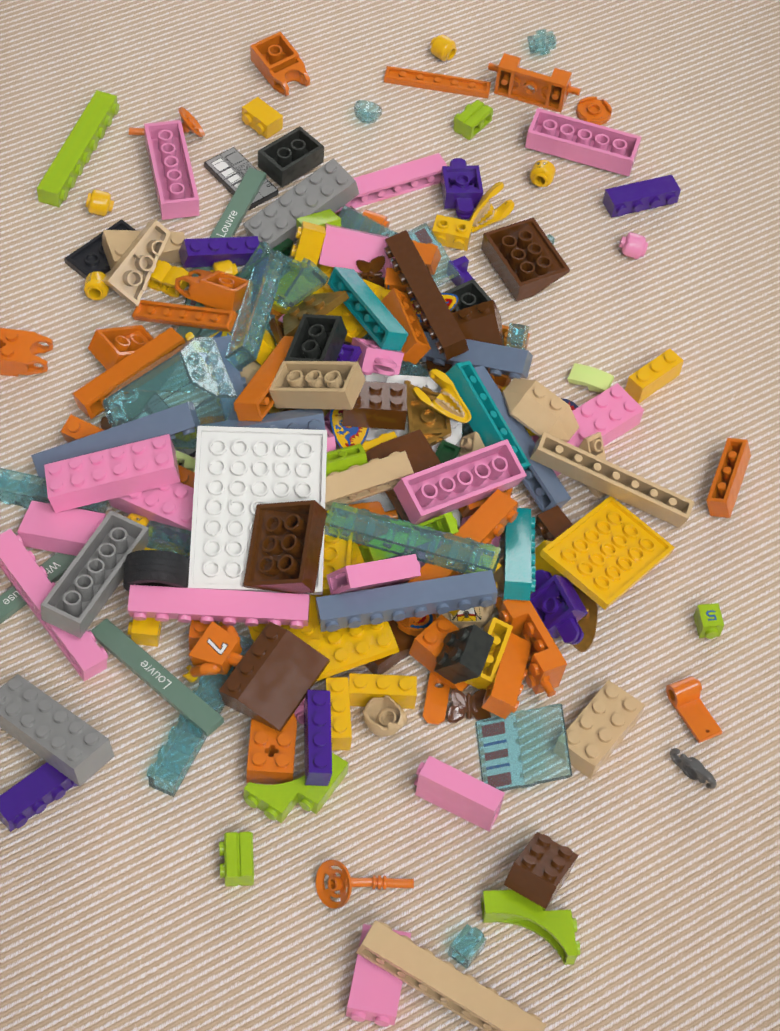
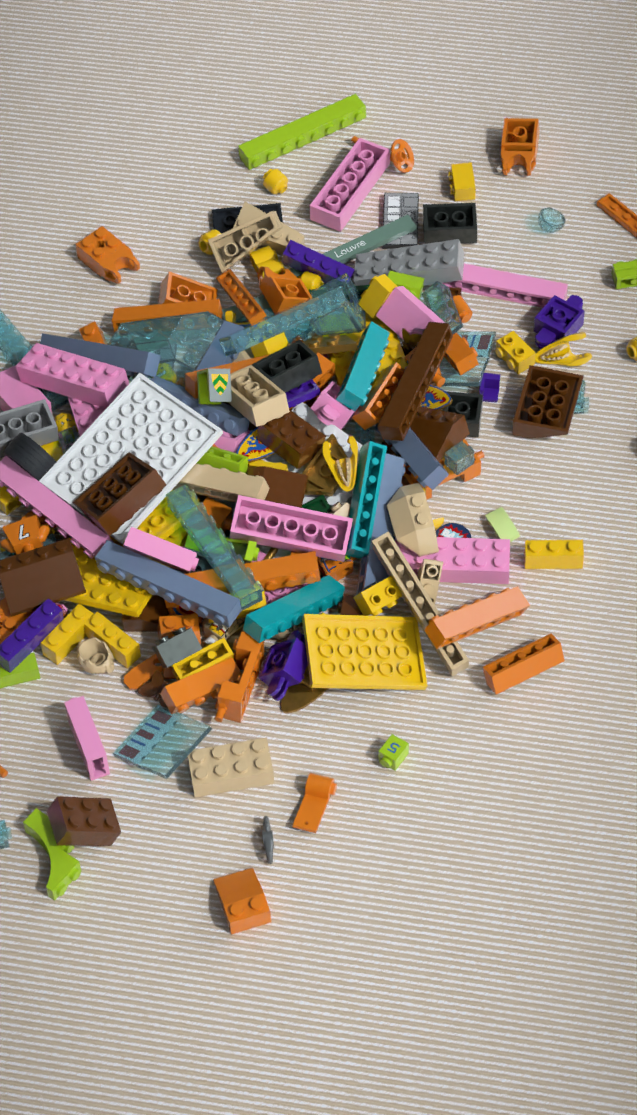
camera: 50 degrees right, 0 degrees up
(286, 391) = (214, 386): none -> piece
(572, 497) = (378, 596): none -> yellow brick
(666, 462) = (476, 617): none -> brick
(727, 835) = (242, 900): none -> orange slope

